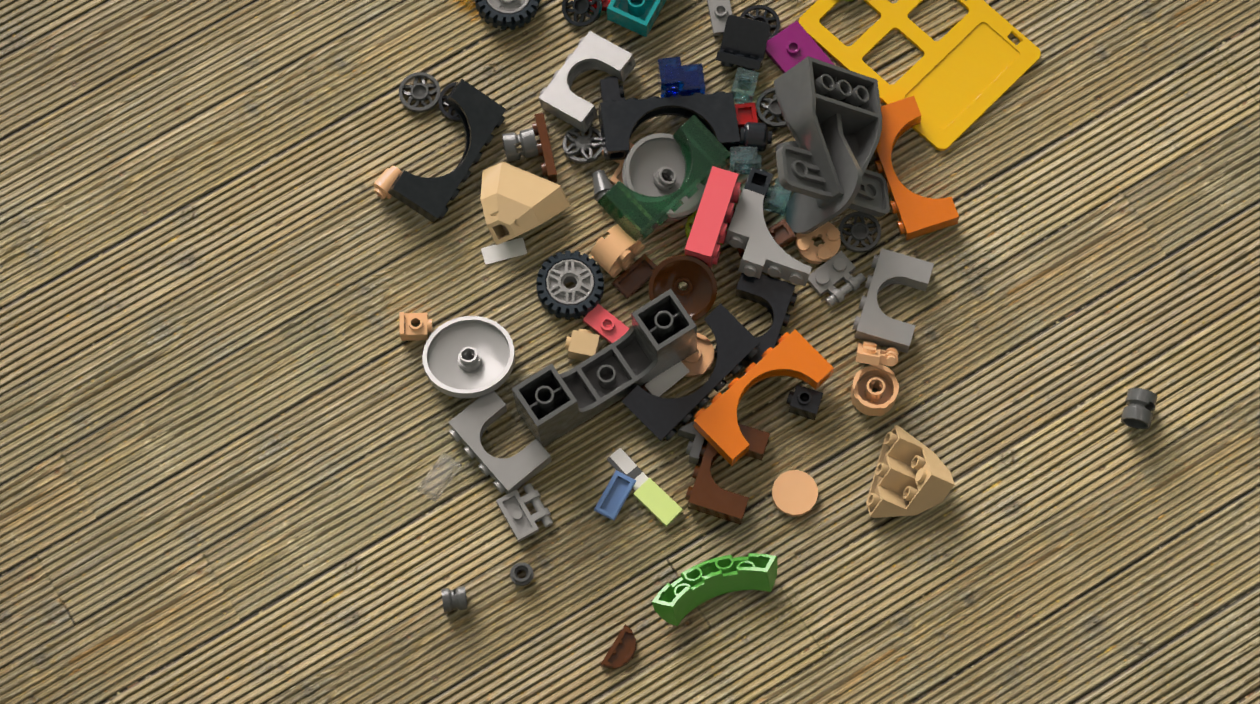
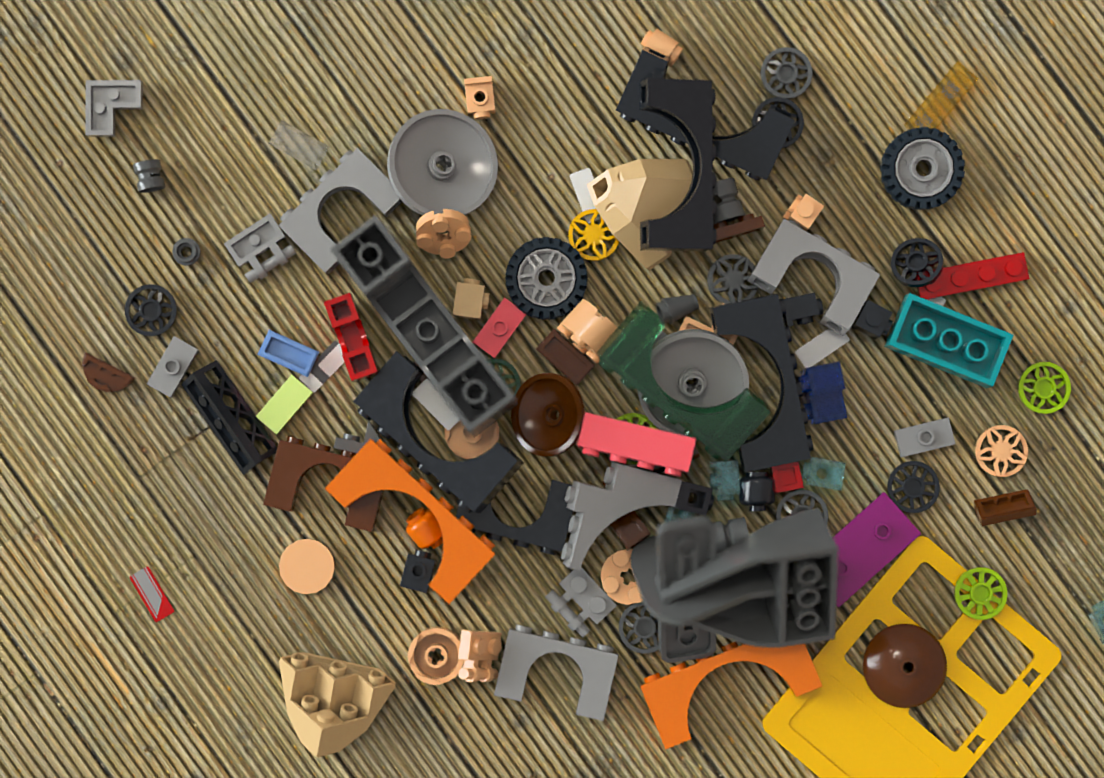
camera: 85 degrees right, 15 degrees up
(383, 632) = (104, 98): none -> light grey plate
(446, 155) = (690, 110): none -> black arch
(525, 358) = (446, 245): none -> light nougat plate
(532, 85) = (803, 211): none -> light nougat brick
(536, 247) = (592, 235): none -> yellow wheel
(569, 607) = (150, 310): none -> black wheel
(593, 444) = (352, 337): none -> red arch
(619, 592) = (172, 367): none -> light grey plate
(626, 38) = (873, 320): none -> black brick
(642, 83) = (820, 347): none -> white sticker
(667, 549) = (224, 419): none -> black fence
(714, 579) = (193, 474): bright green brick -> none
(744, 42) = (879, 468): black bracket -> none
(769, 393) = (424, 529): none -> orange head
(810, 624) = (151, 594): none -> sticker
(896, 51) = (885, 661): none -> reddish brown dish

